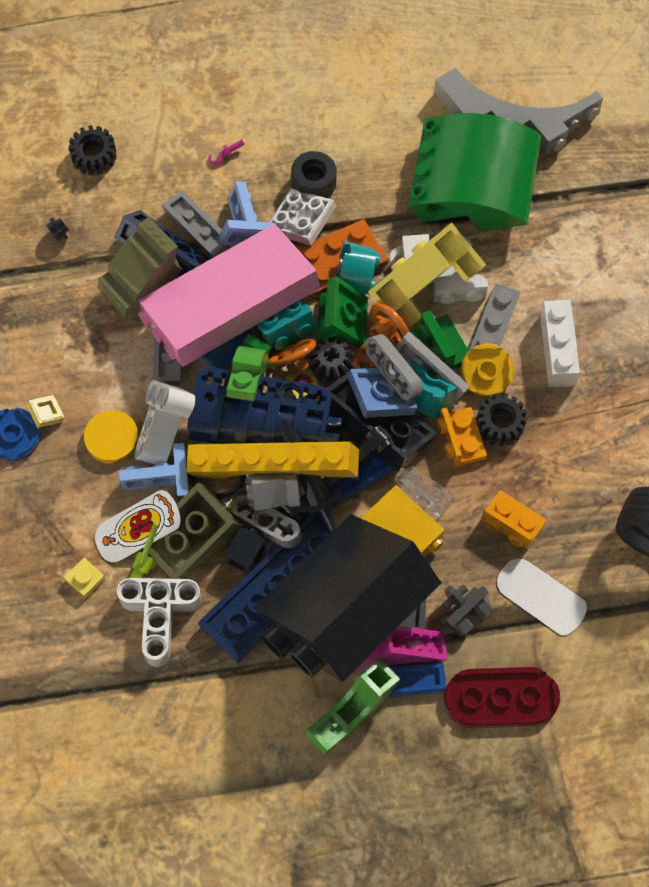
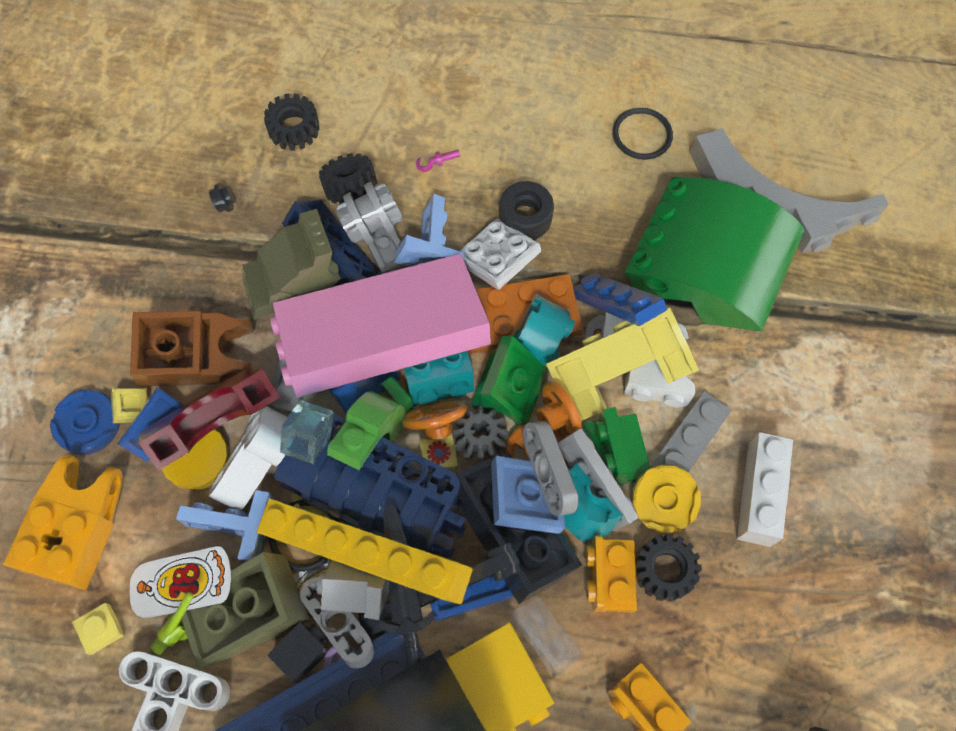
camera: 15 degrees right, 0 degrees up
(35, 502) = (67, 515): none -> light orange brick
(69, 421) = (156, 408): none -> blue tile
(84, 351) = (197, 350): none -> dark orange brick
(99, 415) = (183, 428): none -> dark red arch
(159, 186) = (347, 176): none -> black tyre
(190, 210) = (369, 213): none -> light grey piece
(206, 383) = (306, 431): none -> clear light blue brick
(387, 106) = (624, 149): none -> black tyre
(409, 227) = (619, 299): none -> blue plate

